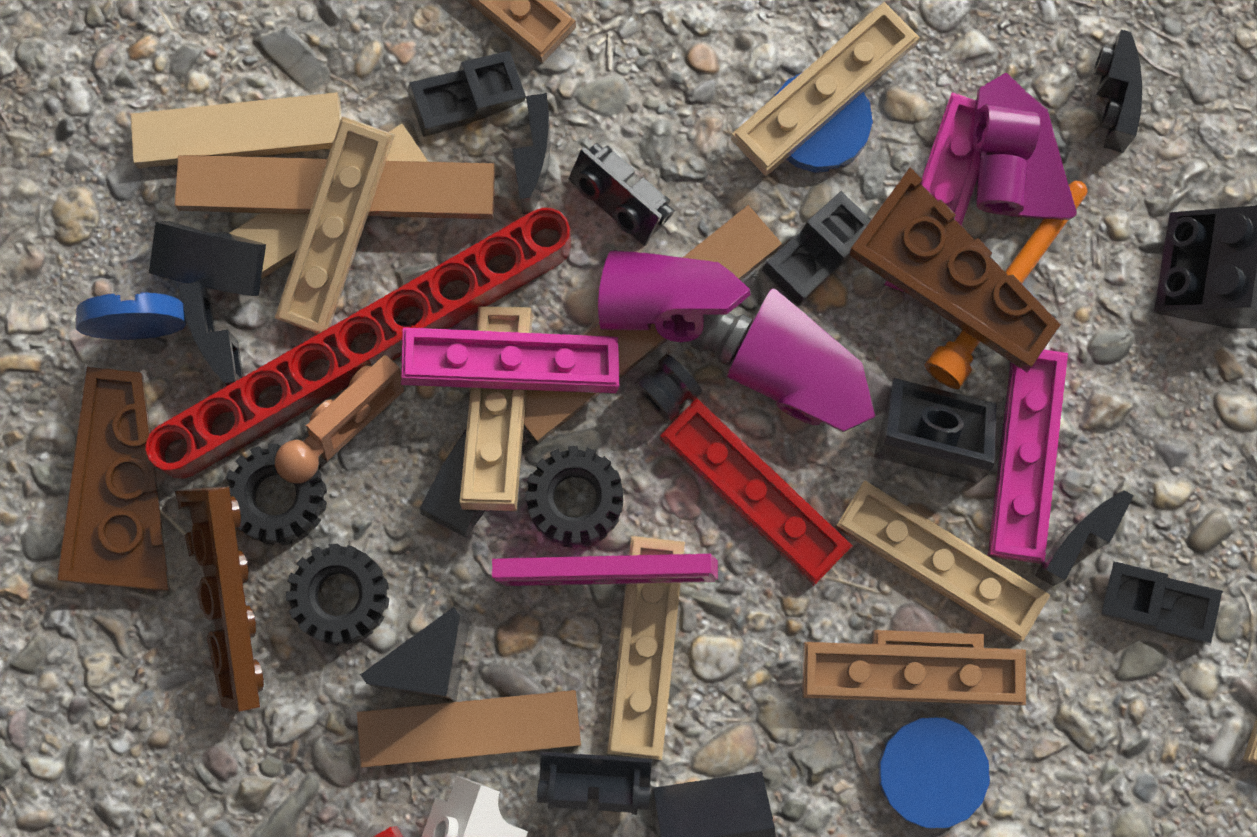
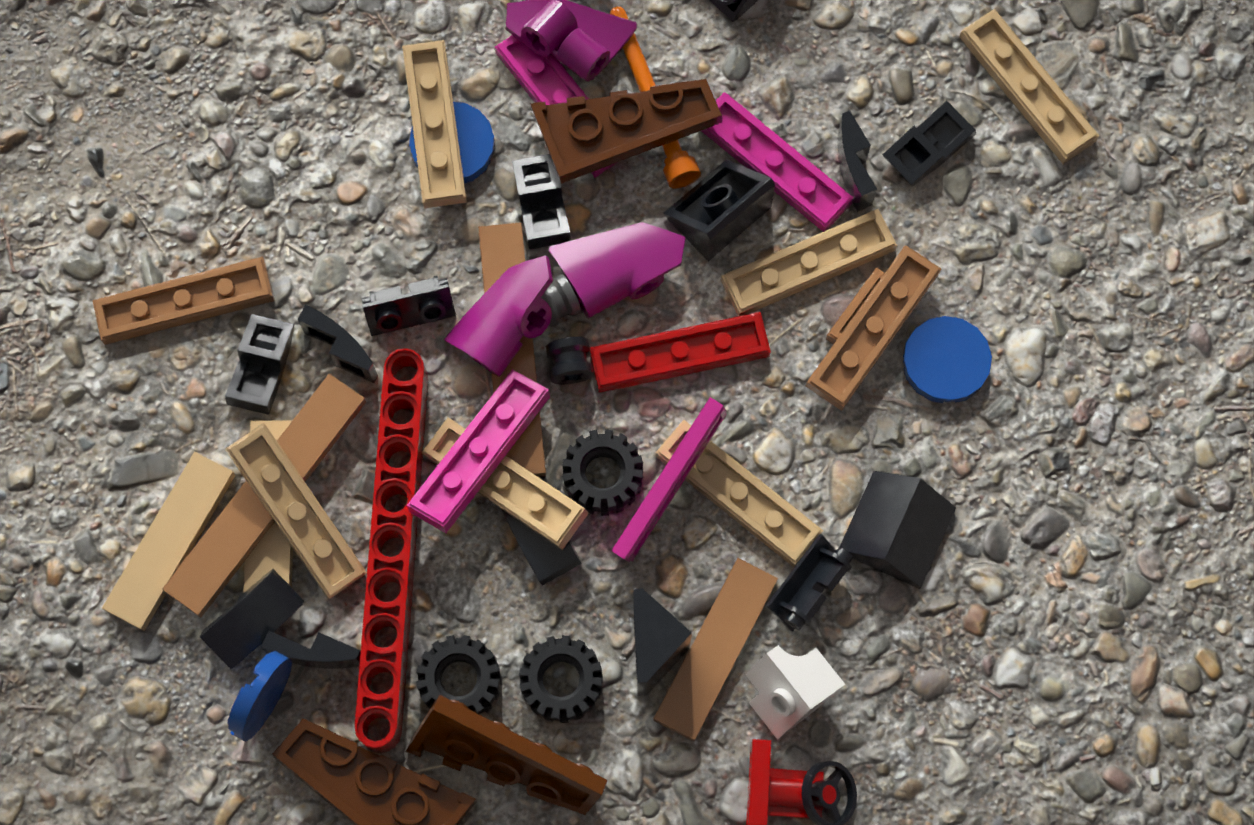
camera: 55 degrees left, 5 degrees down
(340, 420) = (438, 599): nougat plate -> none

